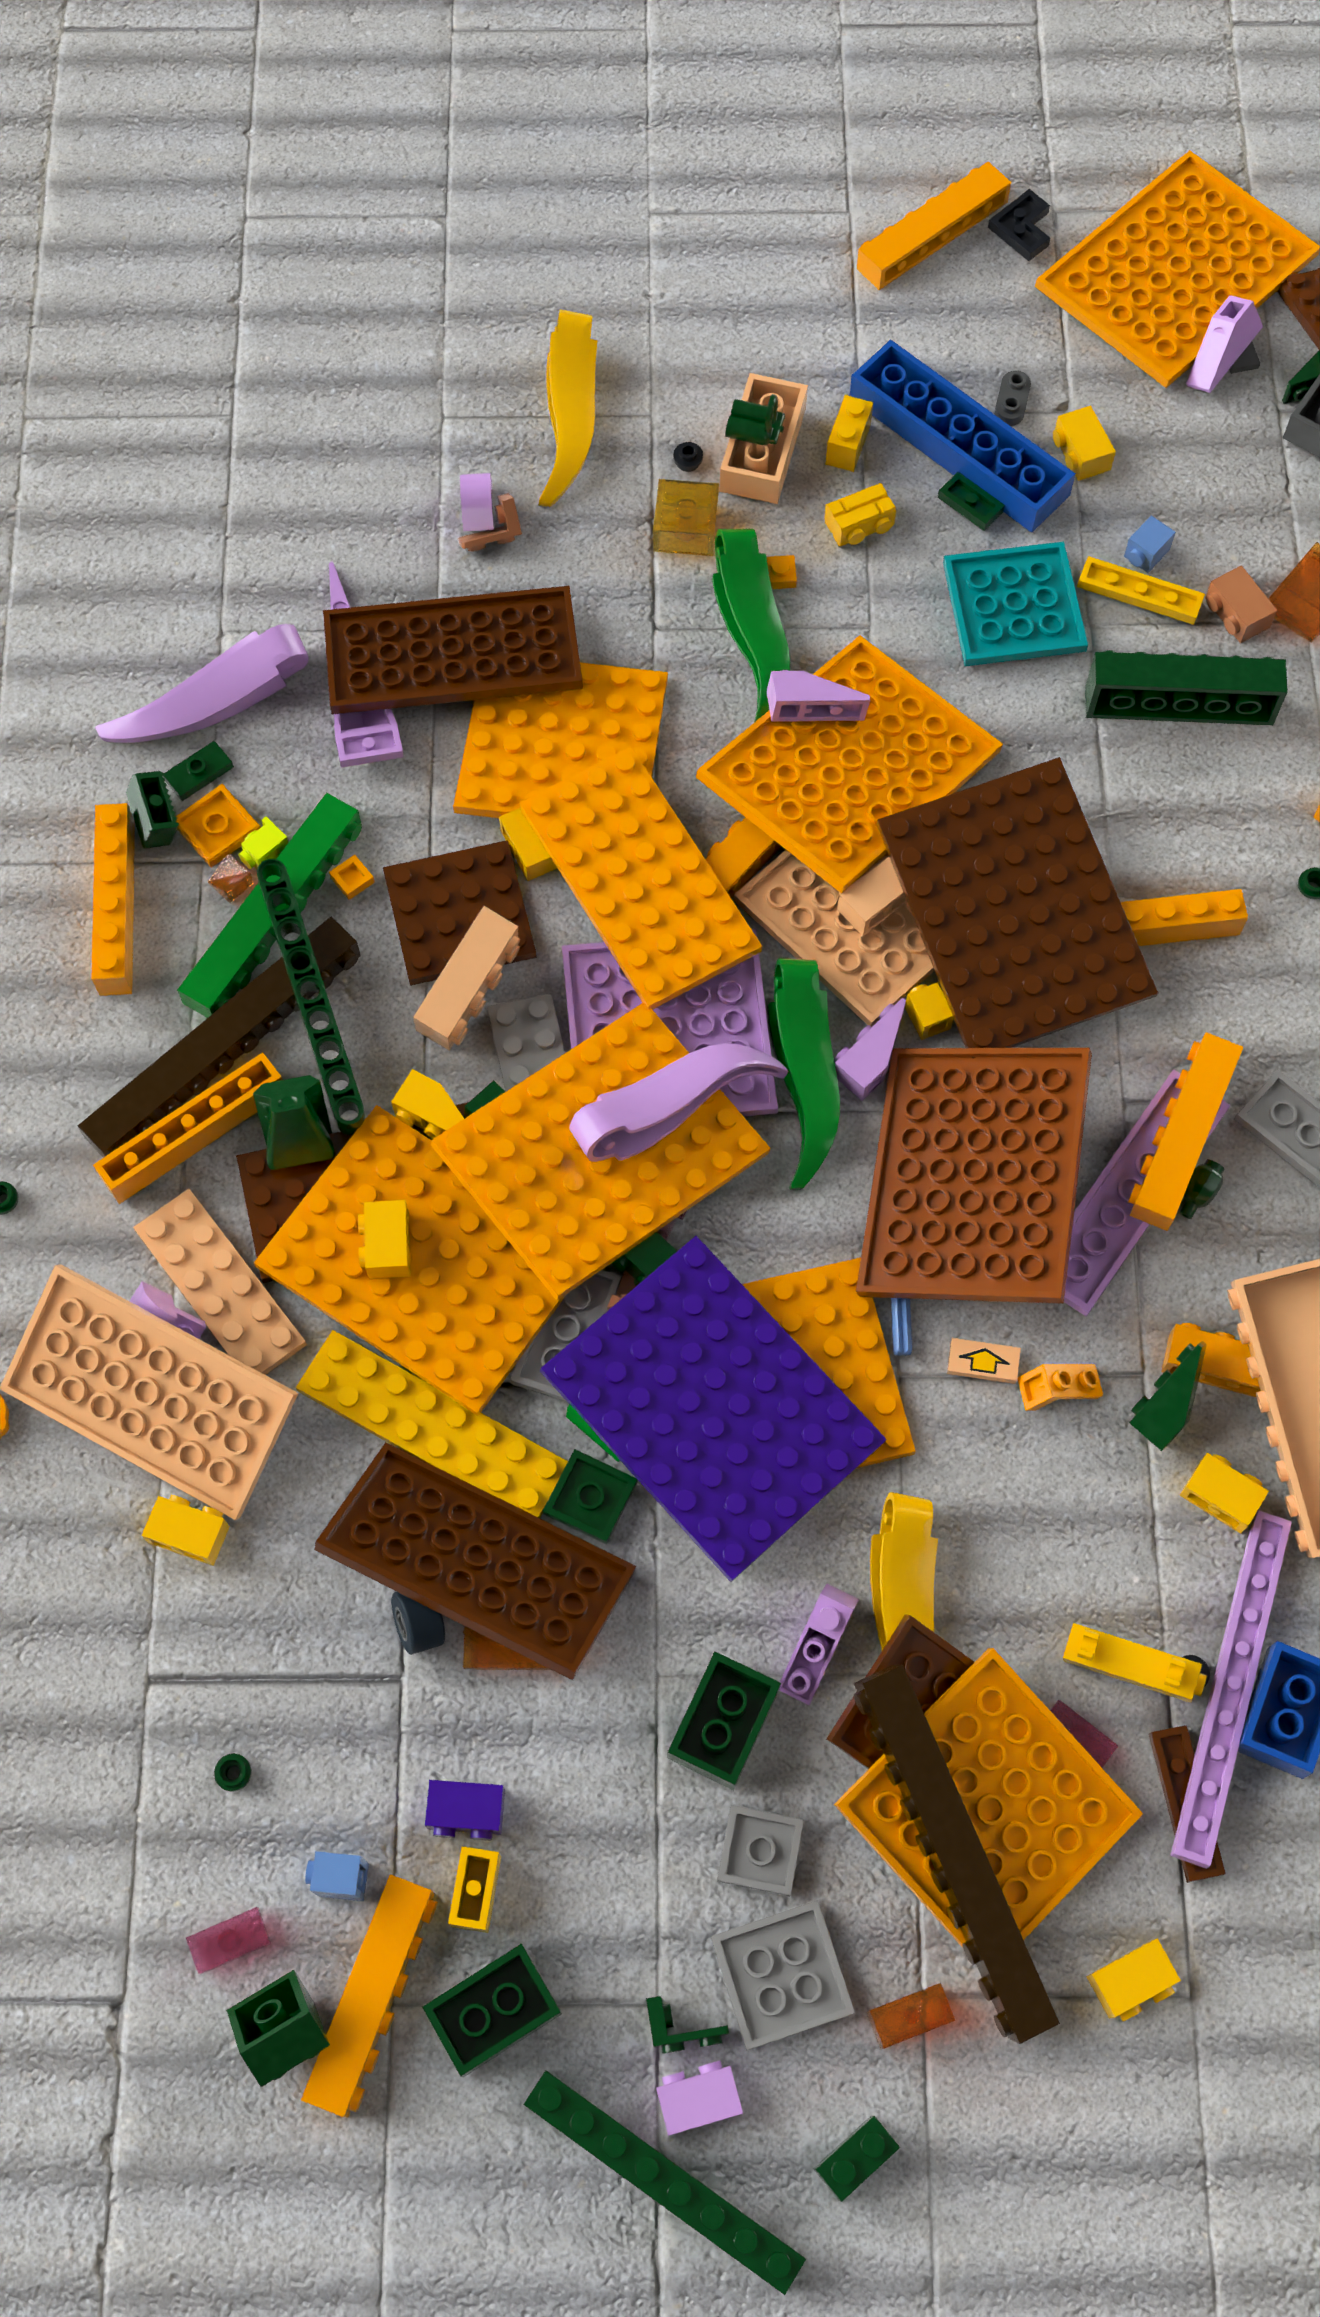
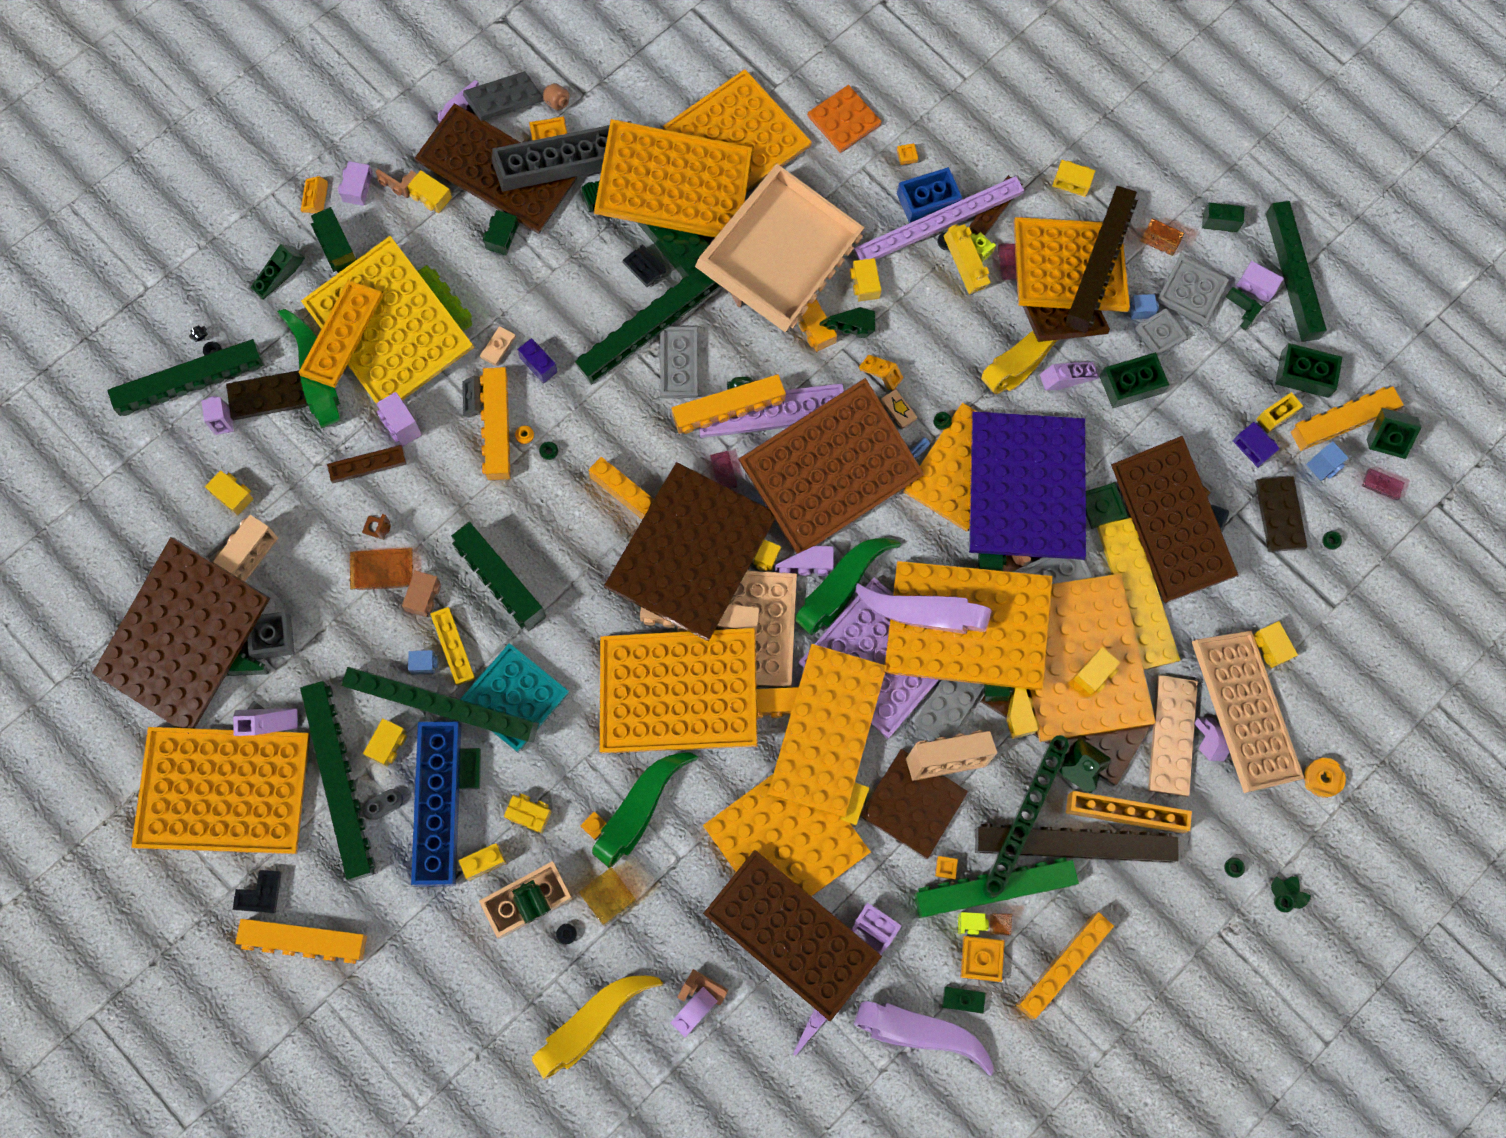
camera: 140 degrees left, 5 degrees up
(152, 809) = (1008, 993): dark green brick -> none
(339, 1741) = (1281, 514): none -> dark brown plate
(813, 698) = (668, 734): lavender slope -> none
(823, 1864) = (1143, 306): none -> medium blue brick
(917, 1393) = (940, 417): none -> dark green plate
(1074, 515) = (440, 704): none -> dark green brick
(1085, 371) = (337, 782): none -> dark green brick
(1106, 1066) = (723, 469): none -> clear pink plate
(1126, 1718) = (983, 246): none -> neon yellow brick

